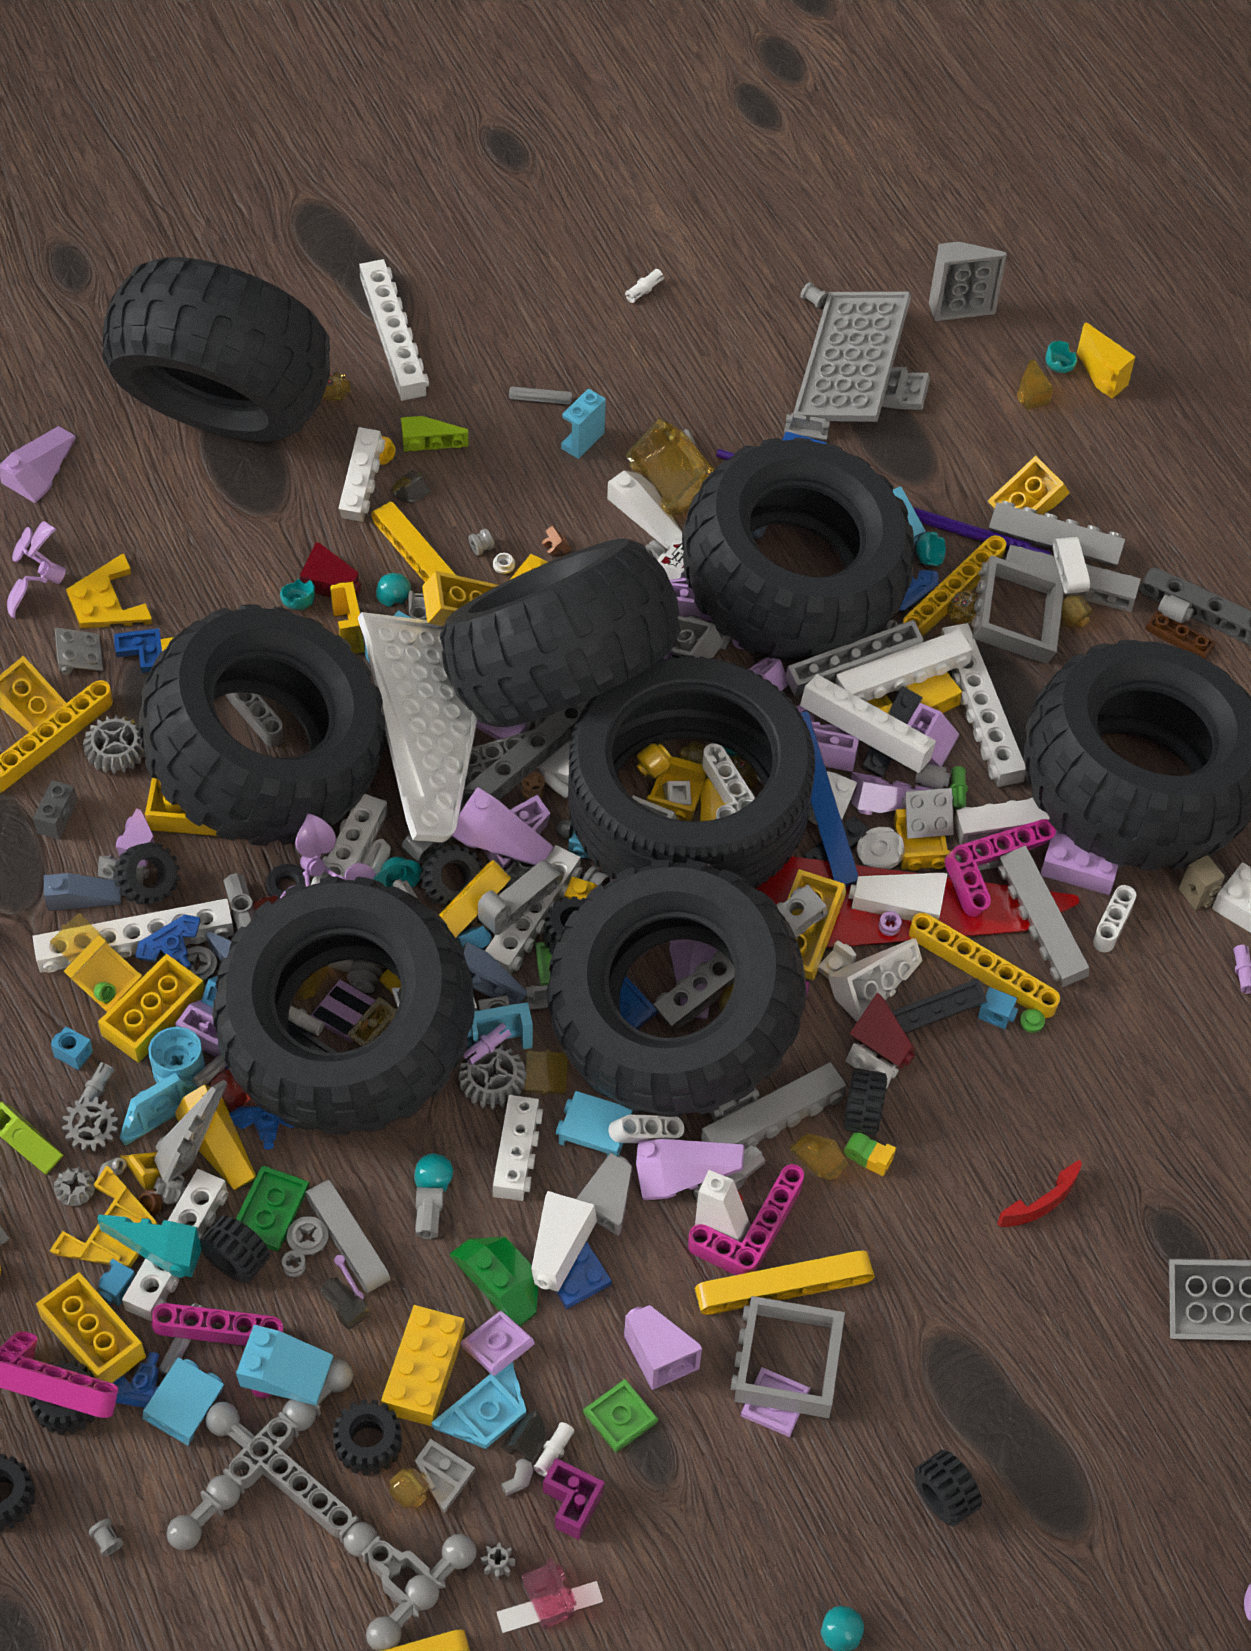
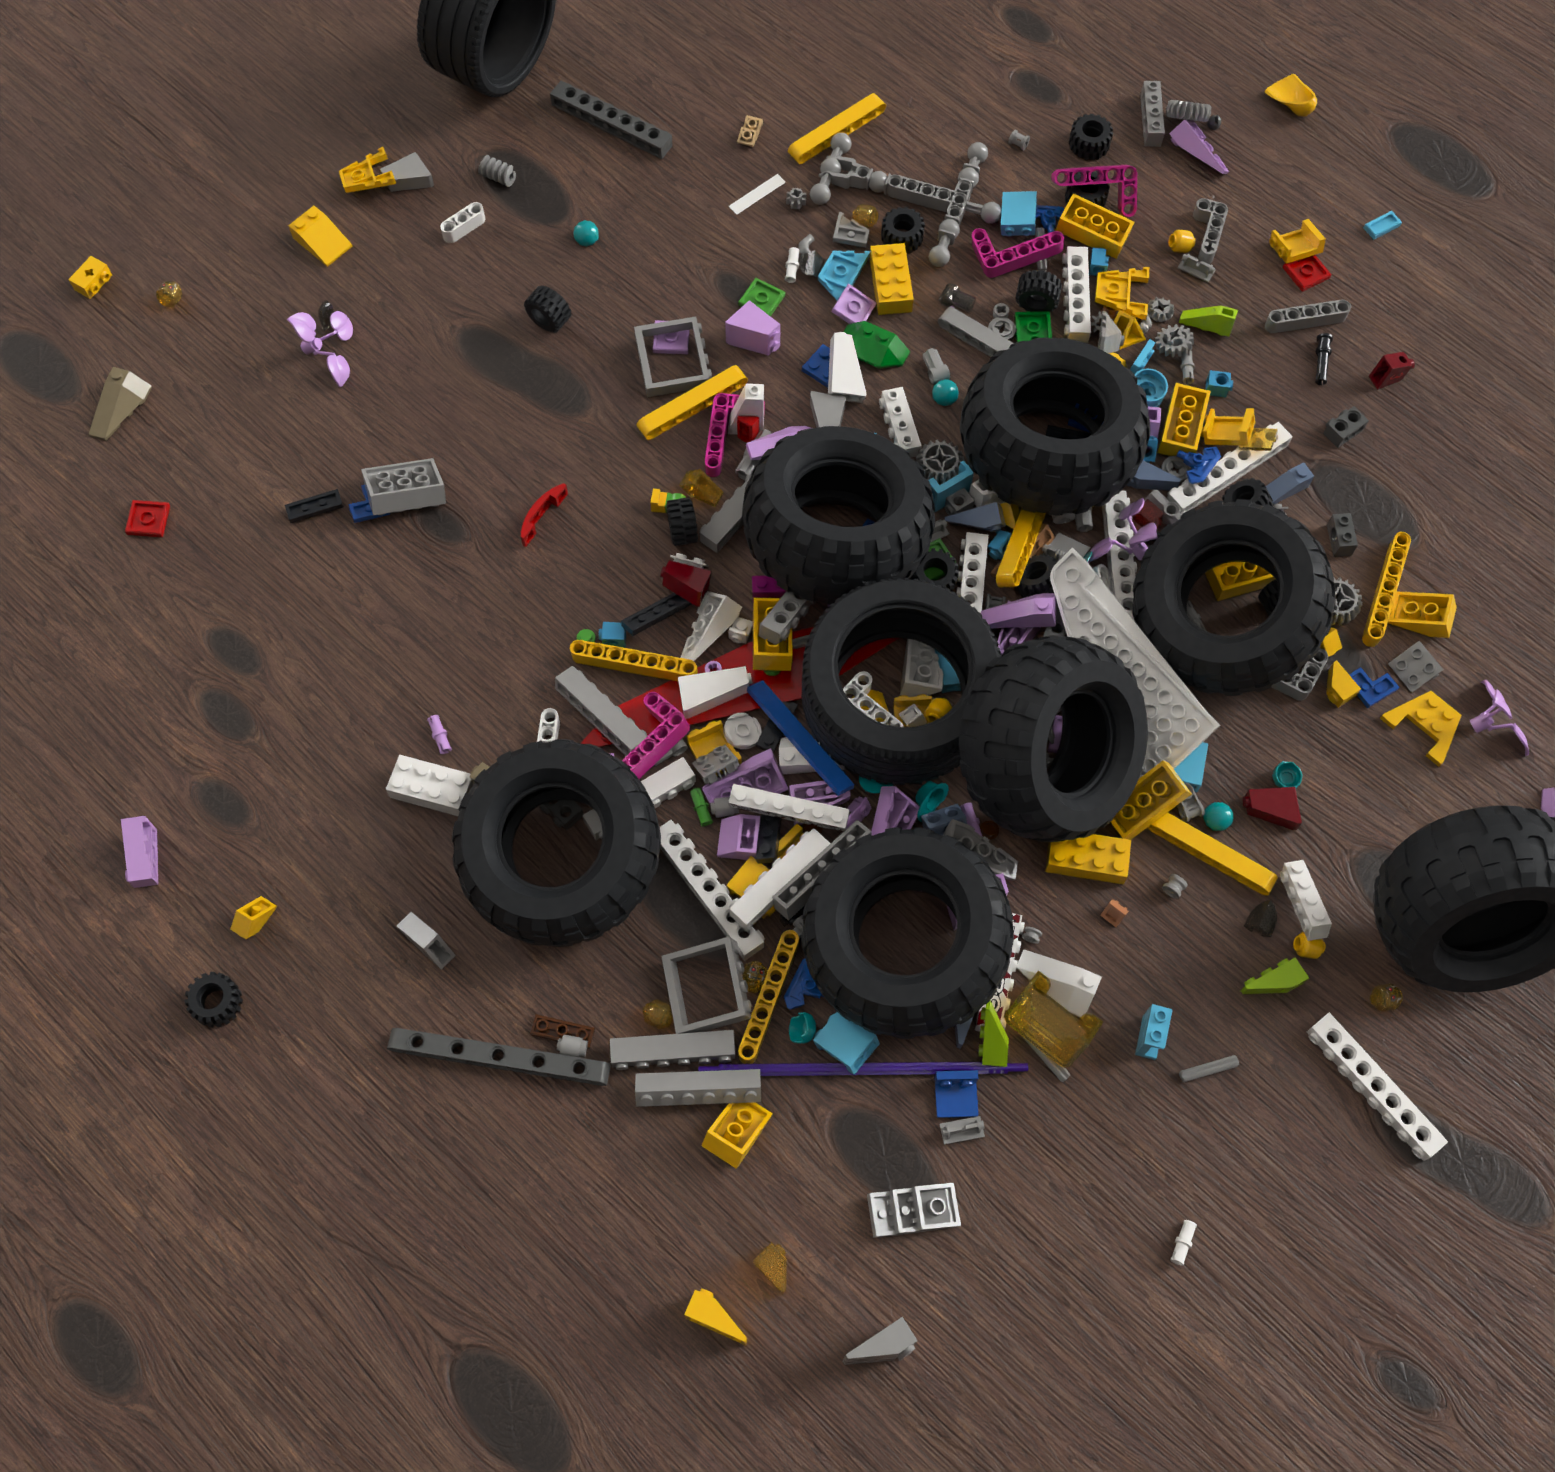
camera: 160 degrees right, 10 degrees up
(104, 992) = (1221, 416): bright green hinge -> none
(168, 1245) = (1083, 273): teal wedge -> none
(283, 1366) = (970, 234): medium azure slope -> none
(345, 603) = (1232, 765): yellow panel -> none
(487, 1043) = (952, 466): lavender pin -> none
(503, 910) = (984, 570): light grey beam -> none
(504, 558) = (1148, 871): white plate -> none
(549, 1594) = (760, 194): clear pink bracket -> none
(579, 1495) = (769, 241): magenta brick -> none
(814, 295) = (1021, 1300): light grey bush -> none
(852, 356) = (953, 1226): light grey plate -> none
(1060, 358) = (758, 1314): teal hair -> none
(1071, 565) = (674, 1043): white beam -> none

